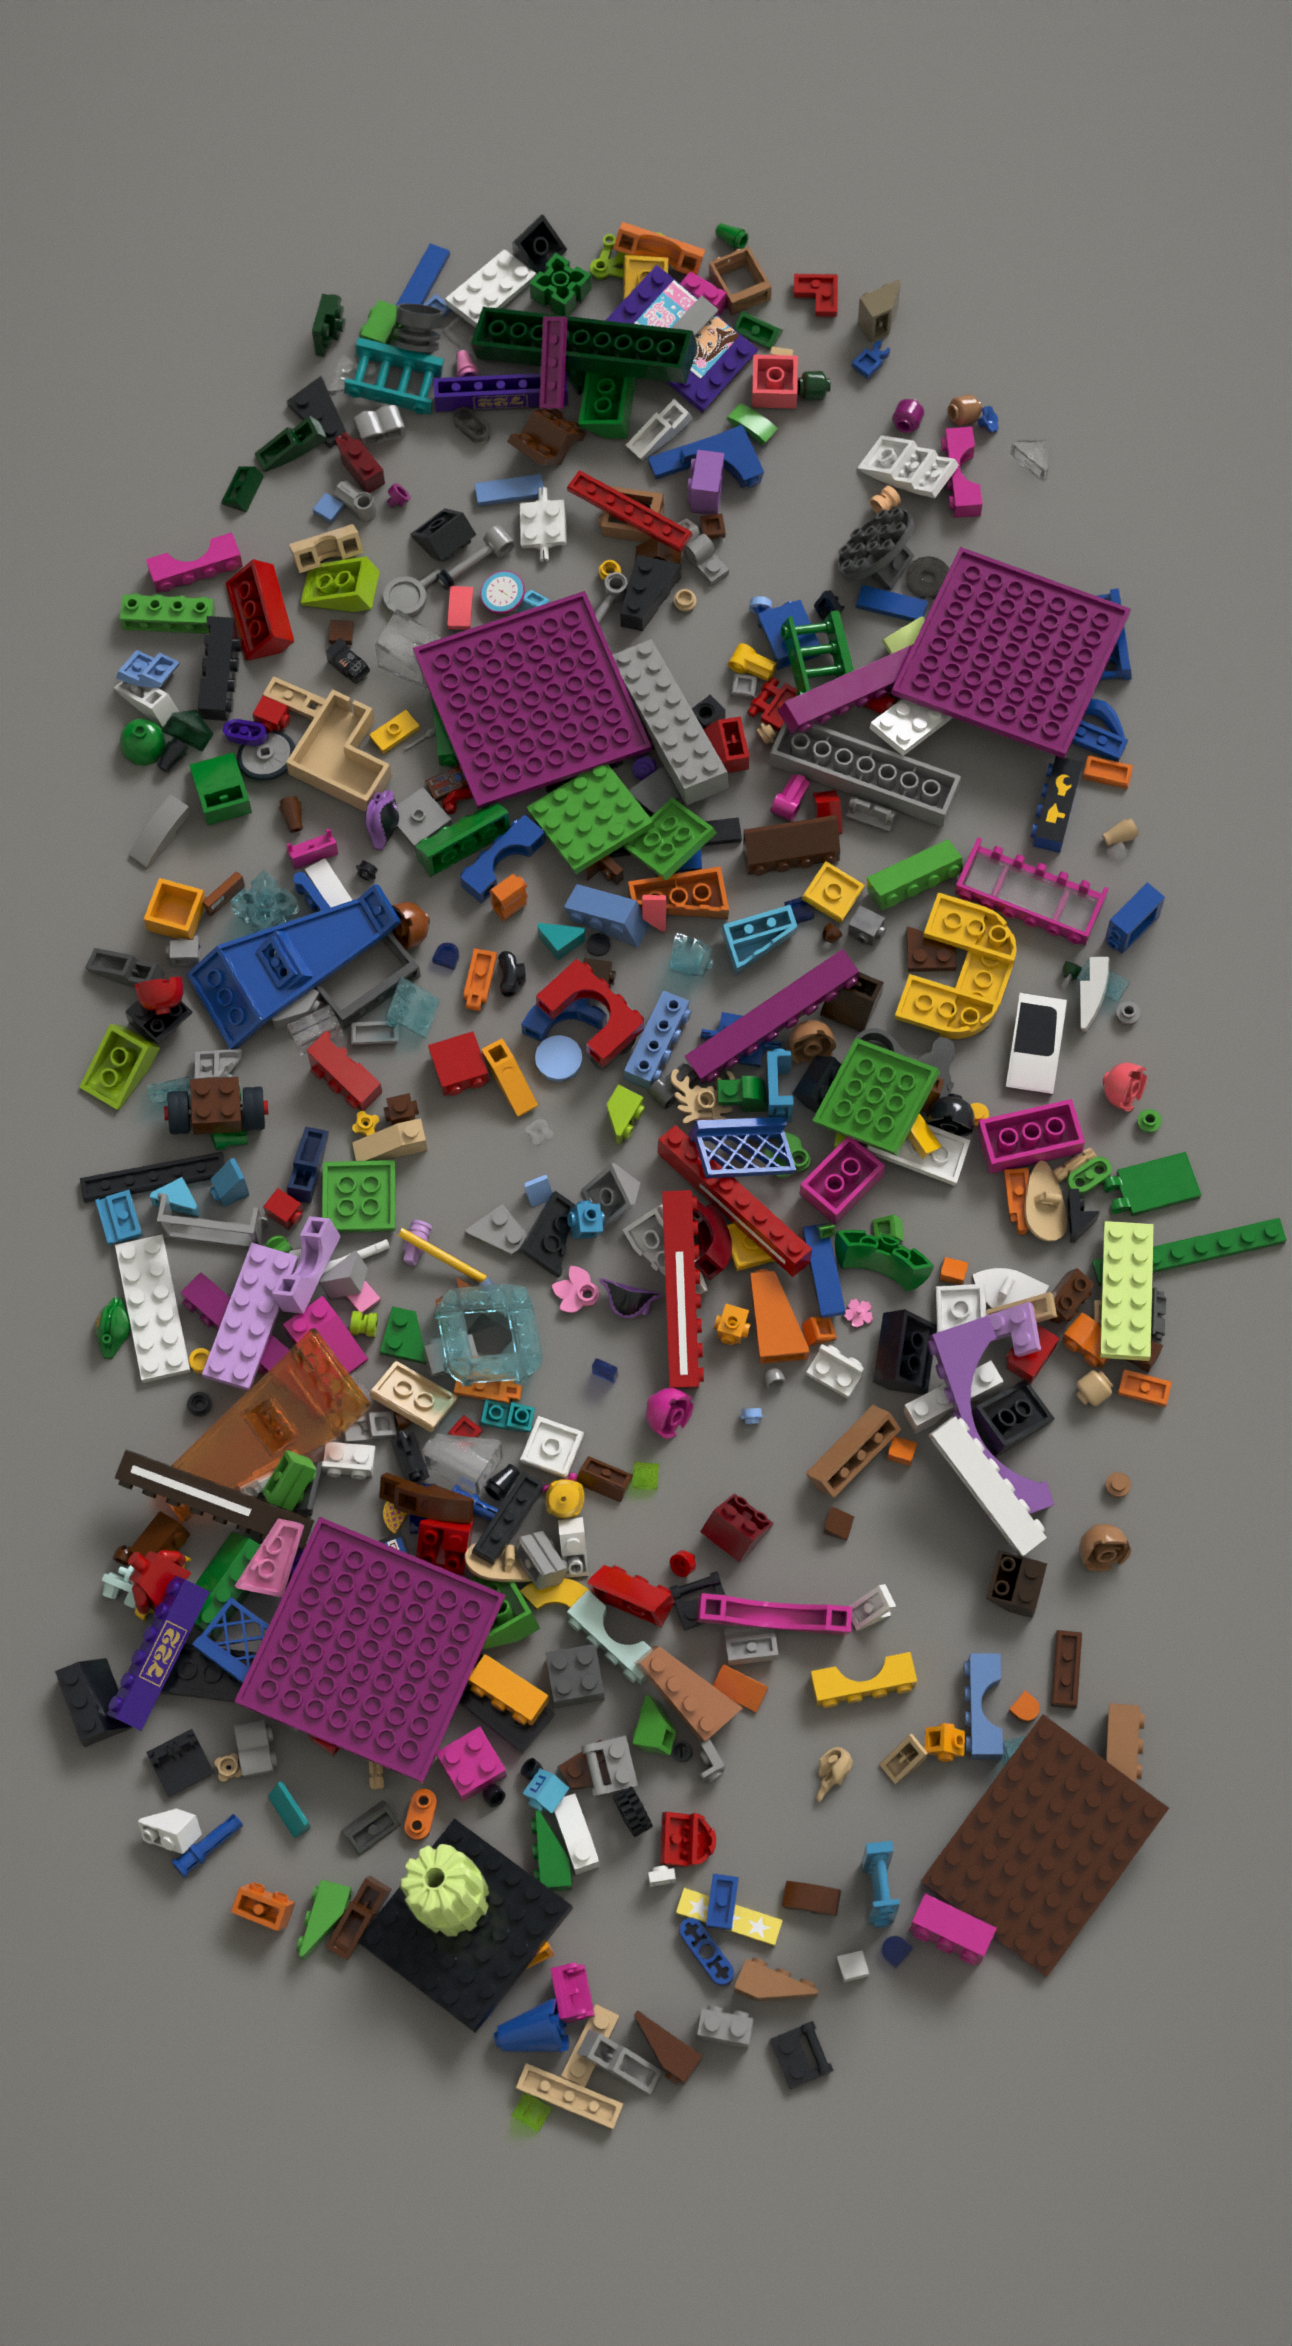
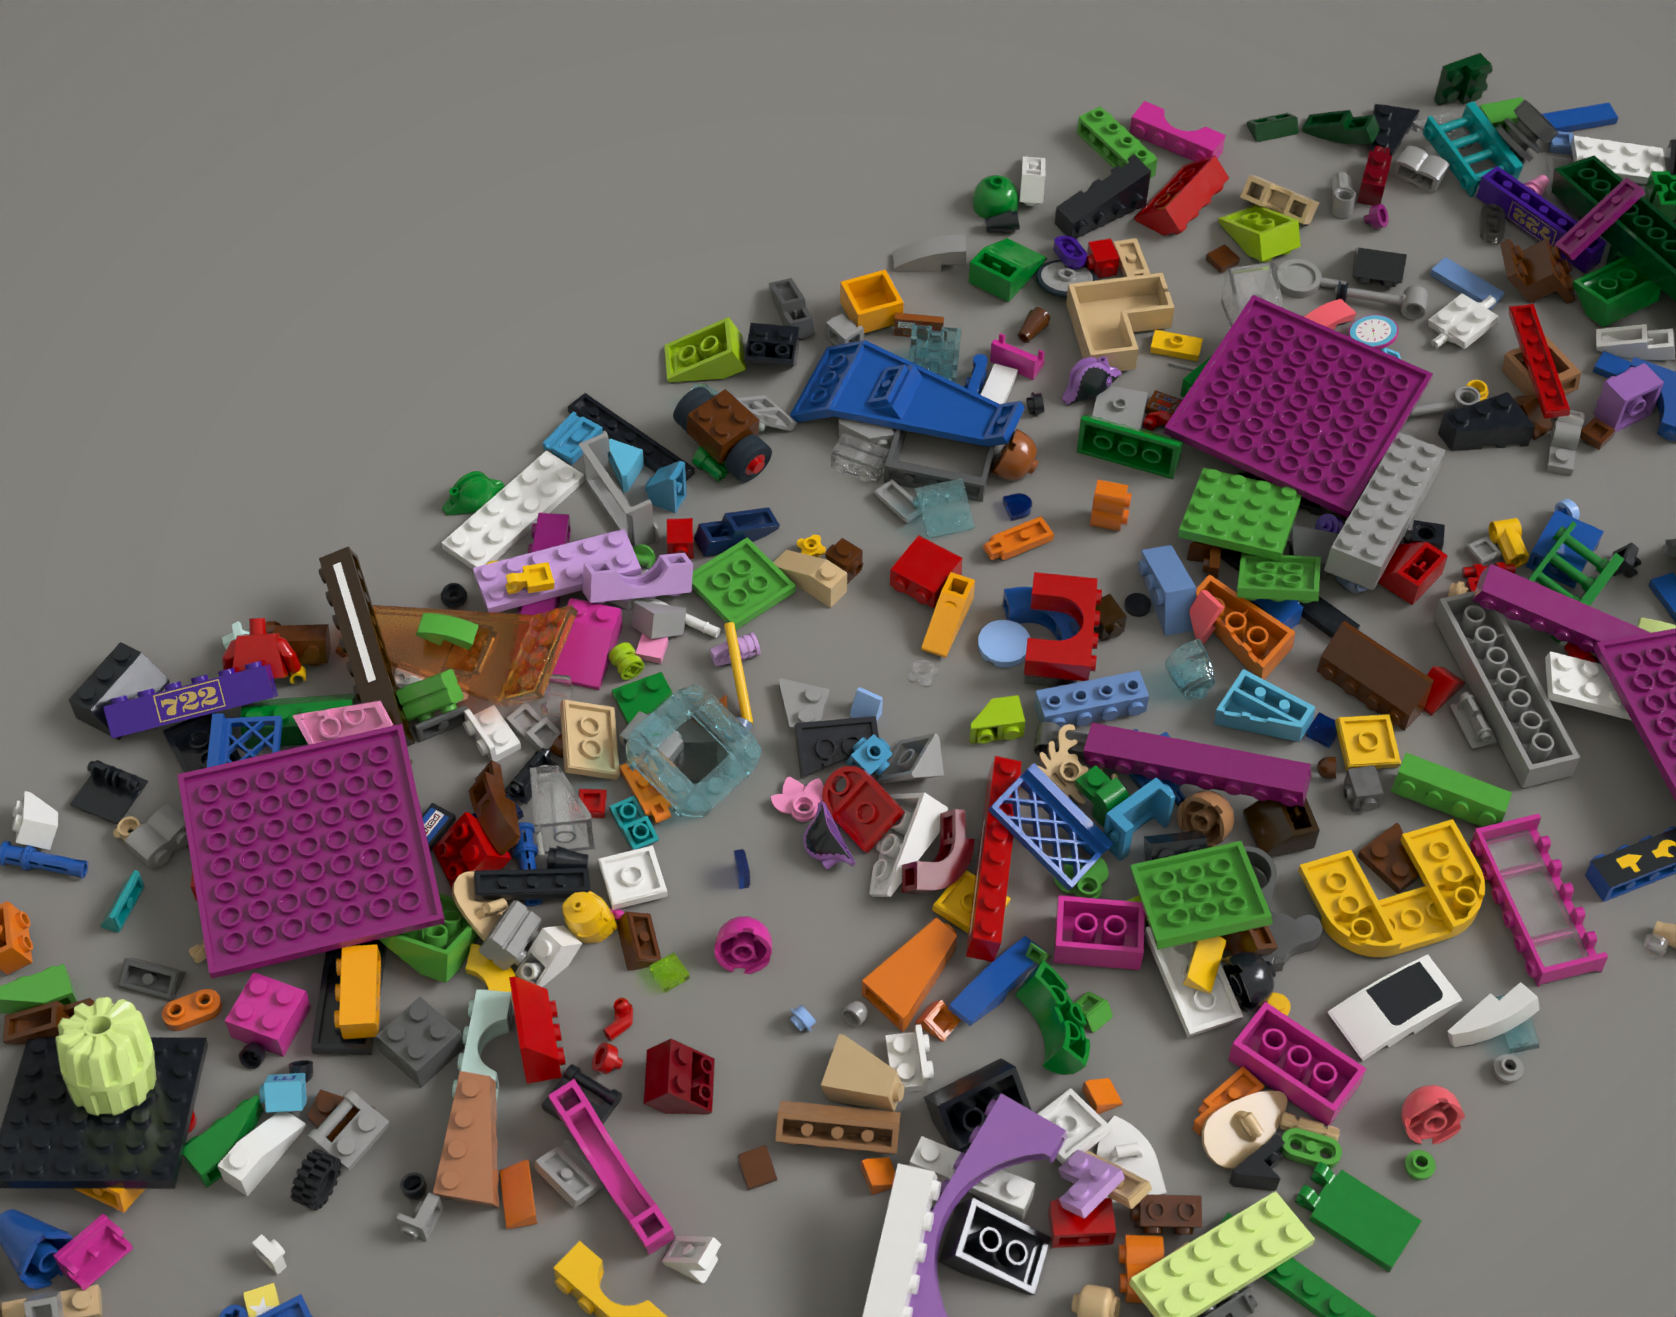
camera: 50 degrees right, 15 degrees down
(146, 670) = (1055, 159): medium blue slope -> none
(160, 994) = (781, 324): red cylinder -> none
(188, 728) = (1033, 212): clear green slope -> none
(244, 1430) = (443, 627): none -> bright green slope
(255, 1337) = (533, 577): none -> yellow plate
(328, 508) = (1317, 185): medium blue tile -> none
(342, 1073) = (839, 496): red wedge -> none
(347, 661) = (1201, 274): black leg -> none
(393, 1518) = (461, 802): yellow tile -> none
(512, 973) = (1046, 558): black piece -> none
(521, 839) = (1171, 484): blue arch -> none
(561, 938) = (1114, 572): teal slope -> none
(622, 1255) = (862, 807): none -> red tile
(654, 1729) = (418, 1143): bright green slope -> none
(658, 1531) = (622, 1021): none -> red arm
(681, 1289) = (866, 868): red brick -> none
(685, 600) = (1510, 458): tan plate -> none
(685, 1839) = (324, 1250): red slope -> none
(732, 1325) = (875, 939): light orange brick -> none
(788, 802) = (1420, 650): dark pink piece -> none
(829, 1410) = (860, 1078): none -> tan slope
(858, 1313) = (985, 1042): bright pink plant -> none
(1071, 968) = (1499, 986): dark green hinge -> none
(1134, 918) = (1603, 1001): blue window -> none

